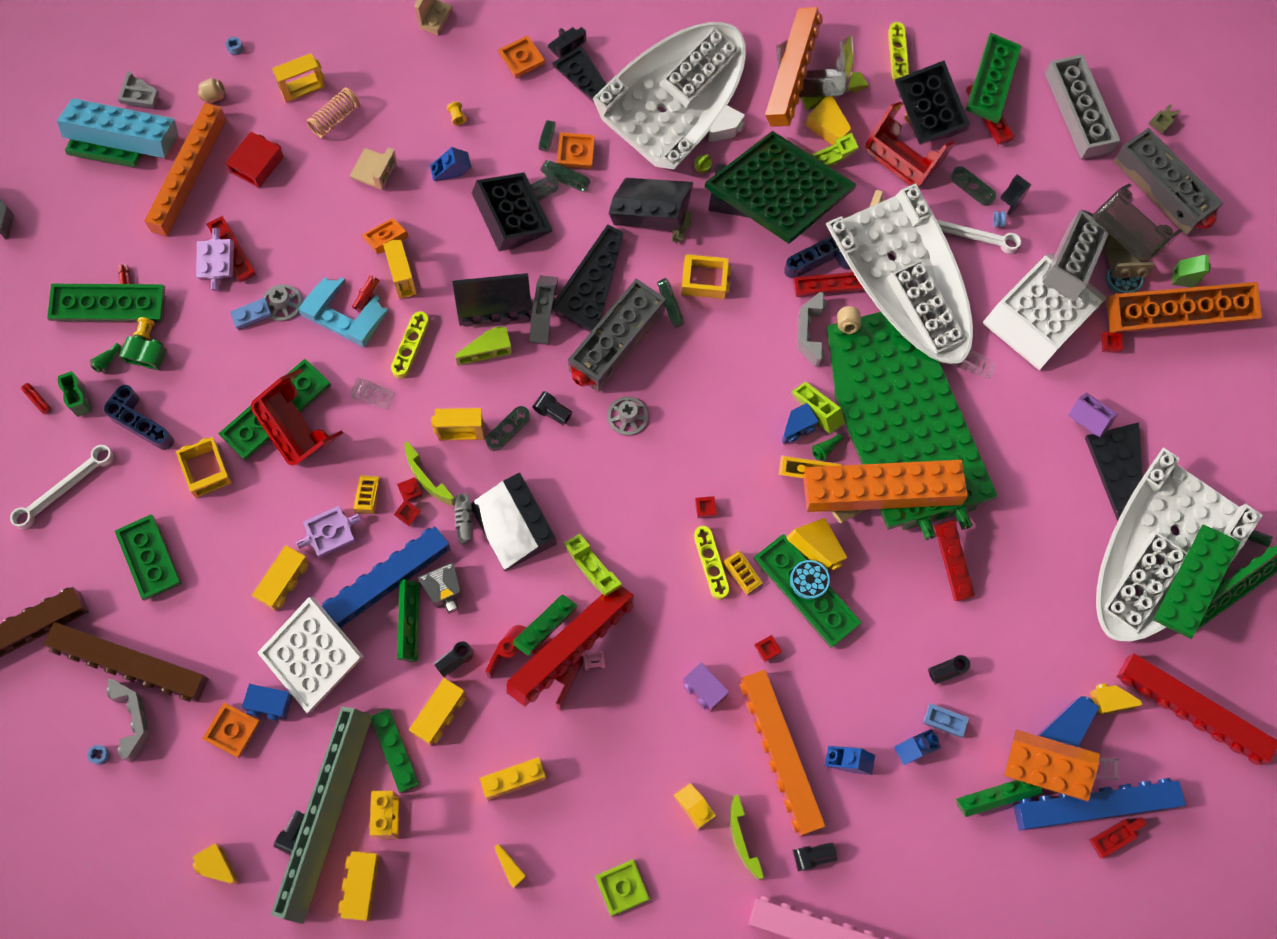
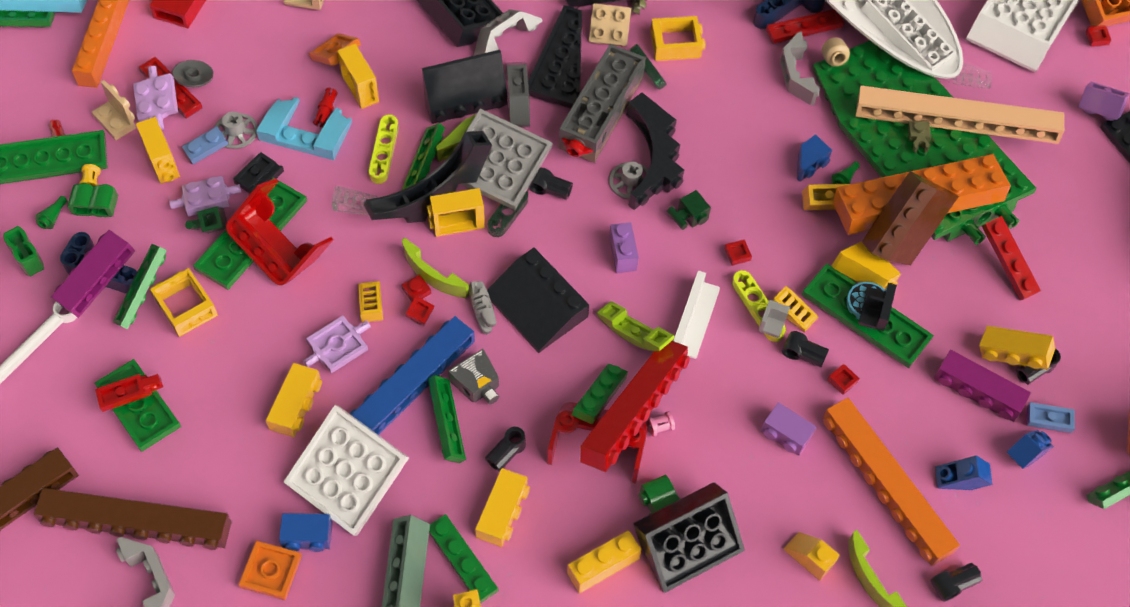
camera: 10 degrees left, 10 degrees down
(128, 429) = (93, 273): none -> magenta brick
(139, 545) = (127, 391): none -> red hinge
(164, 452) = (137, 292): none -> green plate
(176, 269) = (114, 114): none -> tan bracket
(206, 314) = (158, 150): none -> yellow window
(239, 392) = (209, 220): none -> dark green brick
(241, 365) = (205, 195): none -> lavender plate
(252, 239) = (192, 73): none -> dark grey dish
(292, 351) = (258, 171): none -> black plate
(442, 363) = (424, 155): none -> green plate
(468, 385) = (461, 167): none -> black arch
(506, 377) = (511, 160): none -> light grey plate
(524, 257) = (495, 28): none -> light grey slope
(577, 734) = (658, 494): none -> green brick
(591, 771) = (690, 536): none -> black slope
(602, 484) = (623, 247): none -> medium lavender brick
(646, 251) = (610, 24): none -> tan bracket
(652, 562) = (696, 314): none -> white panel
(663, 369) = (658, 130): none -> black arch
(674, 456) = (692, 209): none -> dark green brick
(718, 581) = (774, 318): none -> light grey panel
(737, 611) = (799, 347): none -> black piece
(814, 588) = (877, 307): none -> black panel
(826, 411) = (838, 139): lime slope -> none
(863, 512) = (909, 219): none -> reddish brown slope
(891, 678) = (982, 386): none -> magenta brick
(903, 421) = (920, 134): none -> olive plate
(932, 650) = (1017, 347): none -> yellow brick
(947, 408) = (961, 114): none -> light nougat brick

